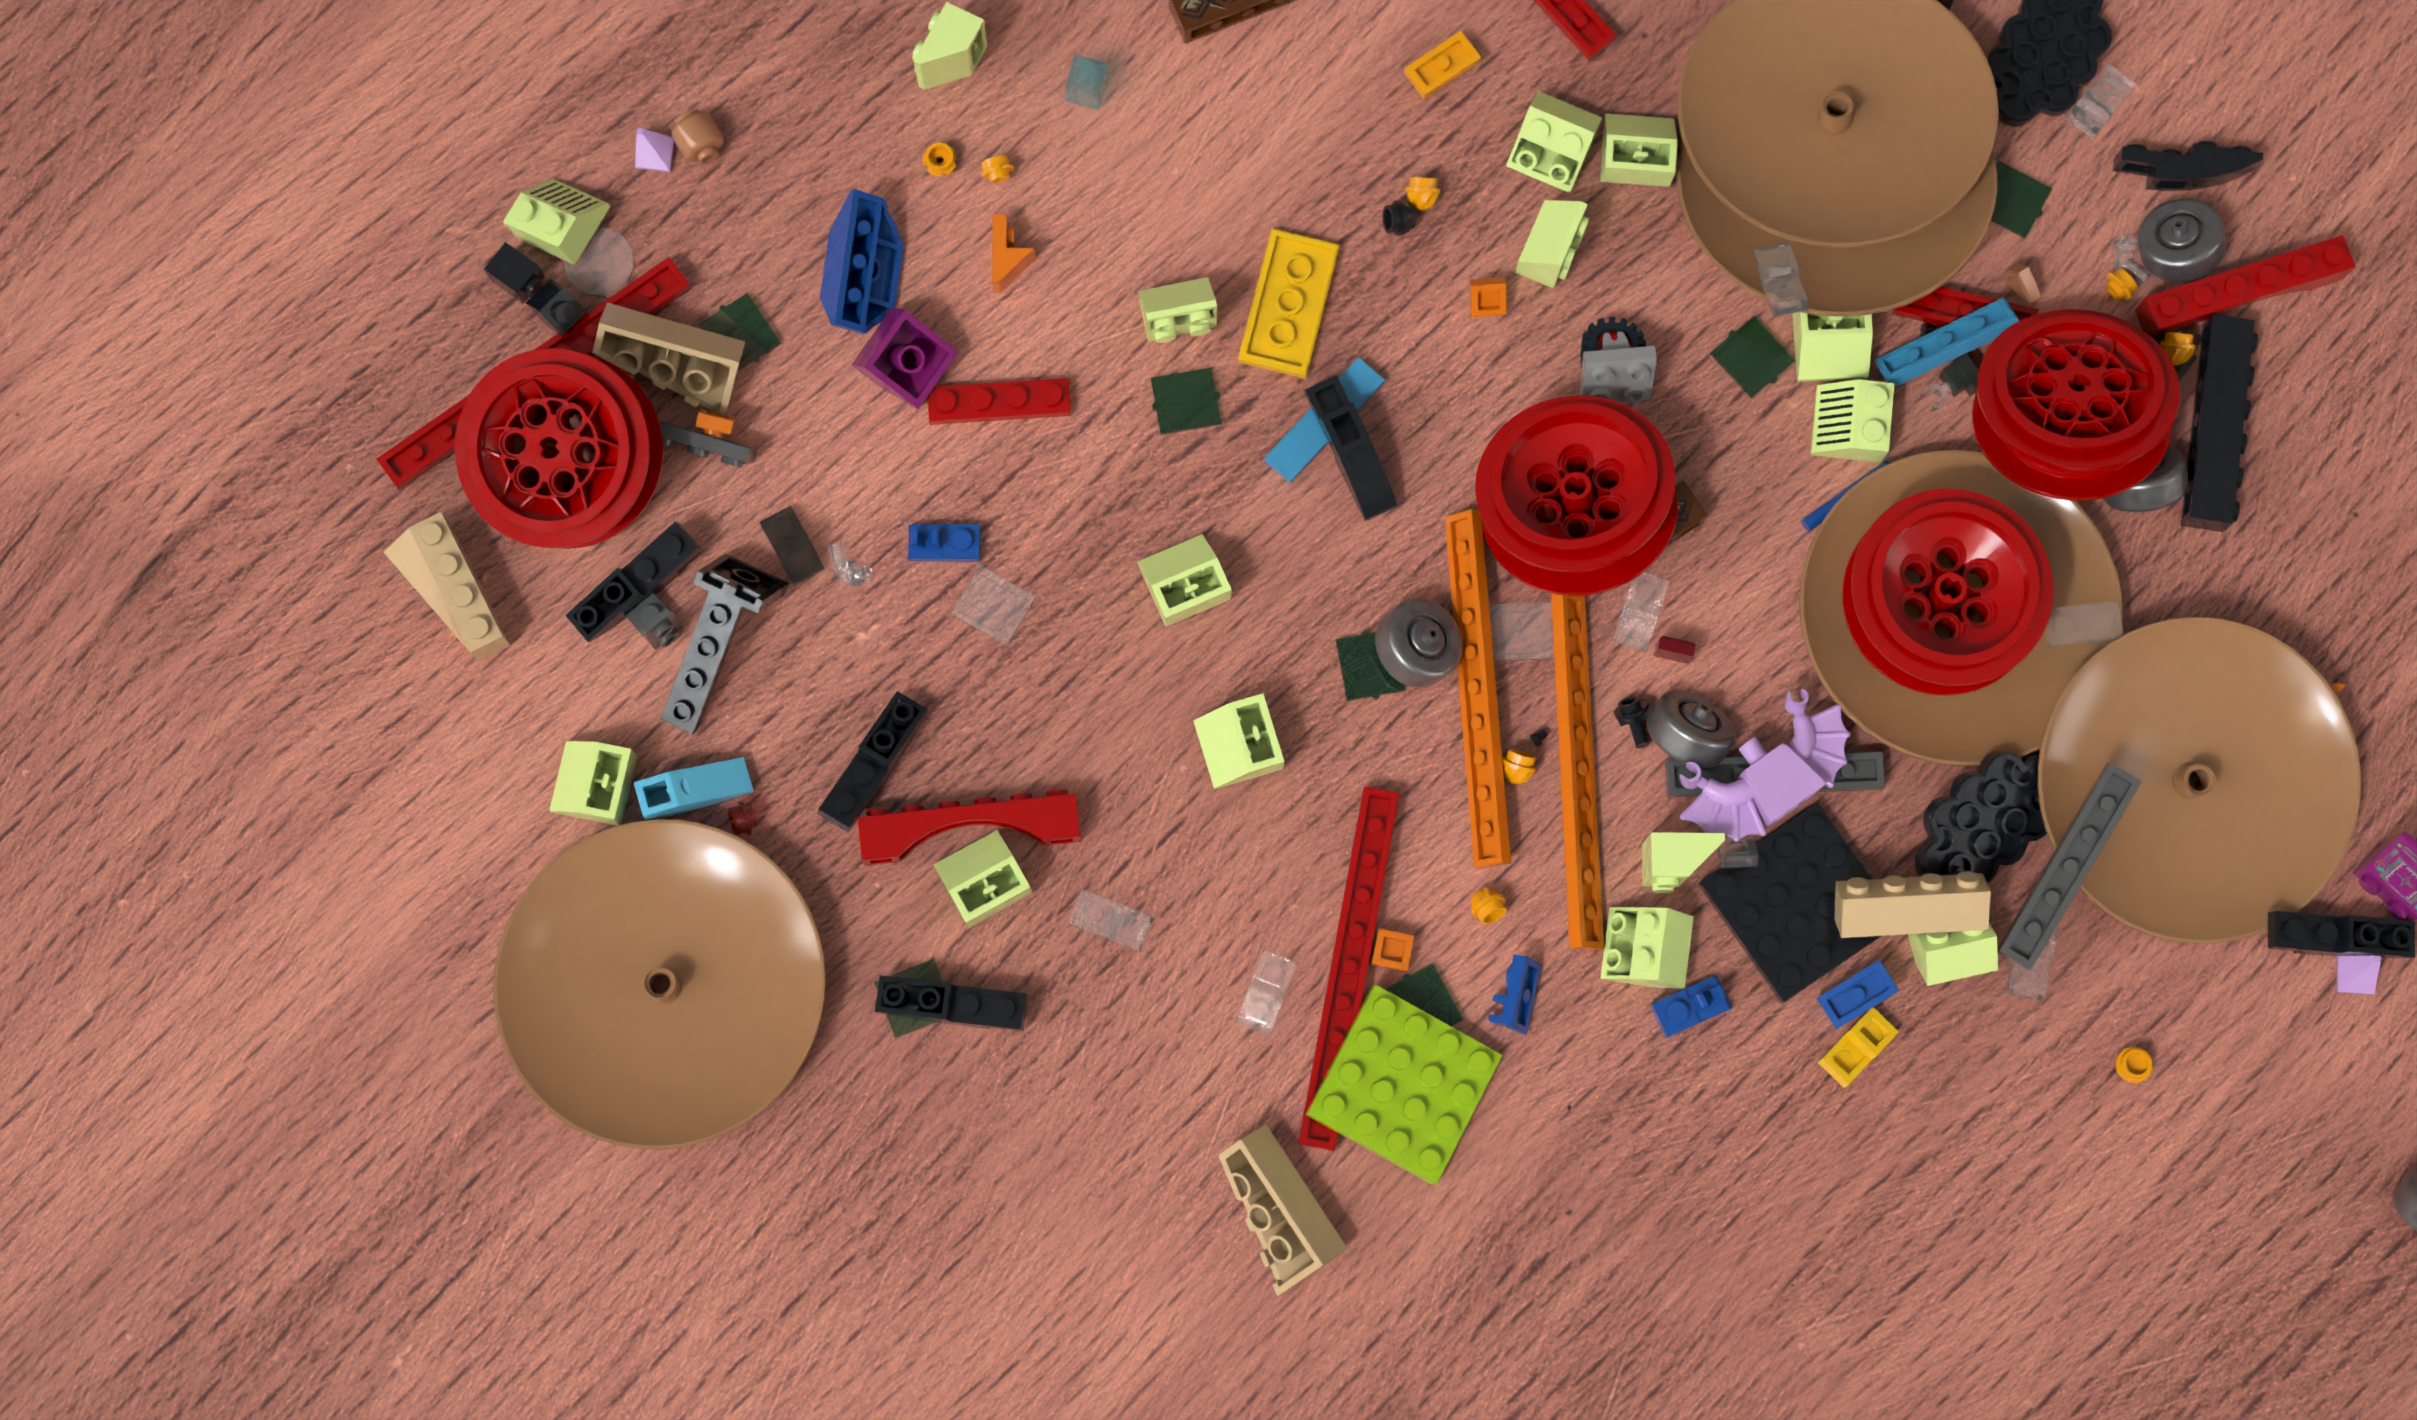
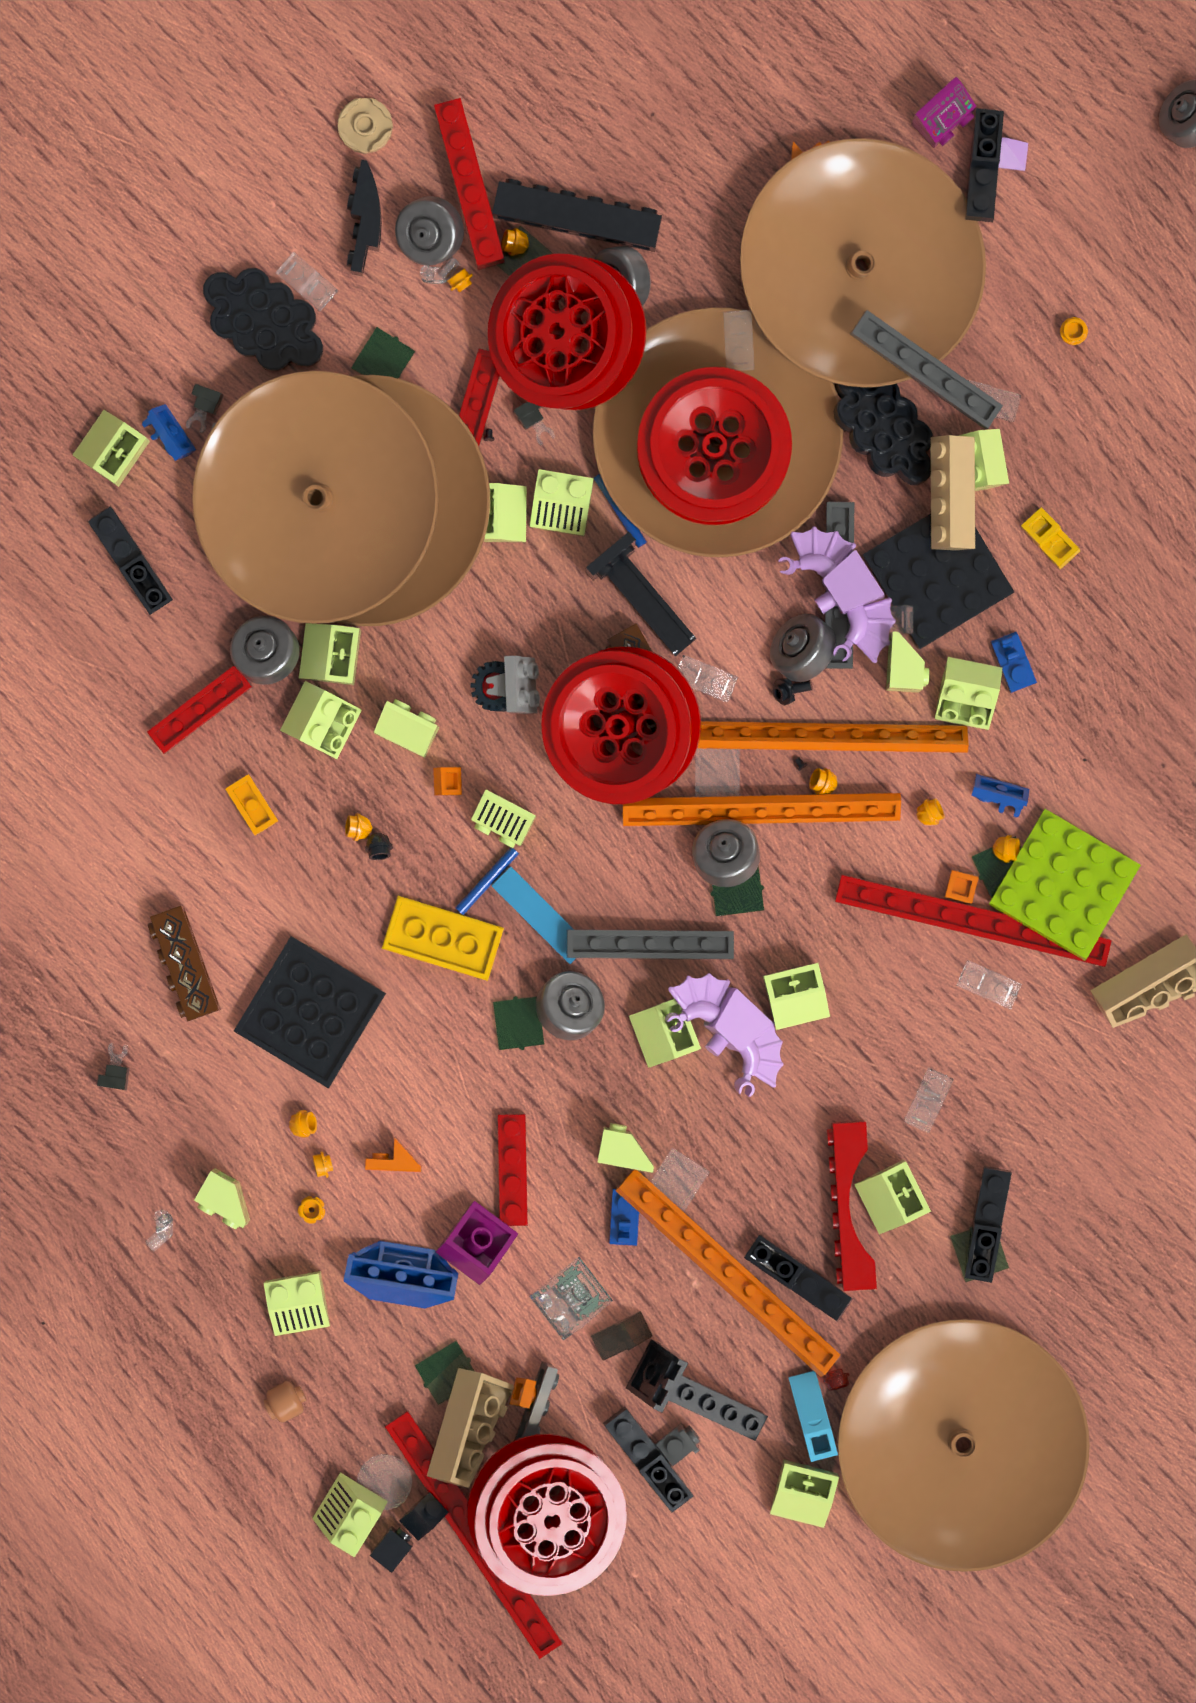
camera: 85 degrees left, 10 degrees up
(442, 574) = (637, 1605): tan wedge -> none
(653, 151) = (293, 1437): lavender slope -> none
(821, 145) = (296, 1303): none -> yellowish green slope
(838, 478) = (571, 1298): none -> clear slope
(847, 570) = (643, 1294): clear arm -> none
(876, 672) = (728, 1272): none -> orange plate
(1031, 529) = (622, 1149): none -> yellowish green slope
(1047, 143) = (303, 1124): none -> light orange plate
(1087, 82) = (254, 1089): clear light blue brick -> none
(1178, 310) = (447, 1026): yellowish green slope -> none
(1187, 145) = (309, 1012): none -> black plate
(1199, 661) = (734, 1025): none -> lavender torso
(1212, 457) = (570, 1005): none -> flat silver wheel
(1295, 555) = (650, 944): none -> dark grey plate
(1351, 448) = (566, 896): black slope -> none
(1364, 353) = (487, 880): none -> blue bar
(1446, 364) = (503, 819): none -> yellowish green slope
(1447, 1006) = (1006, 848): none -> light orange plate
(1637, 67) = (264, 650): none -> flat silver wheel
(1674, 649) = (738, 655): dark red tile -> none
(1752, 357) = (503, 575): clear green piece -> none
(1781, 279) = (458, 554): clear slope -> none
(1786, 483) = (641, 594): none -> black bracket
(1858, 994) = (1012, 536): blue plate -> none
(1946, 343) = (505, 424): dark azure tile -> none
(2022, 282) = (456, 359): nougat tile -> none
(2302, 163) = (365, 125): none -> tan tile

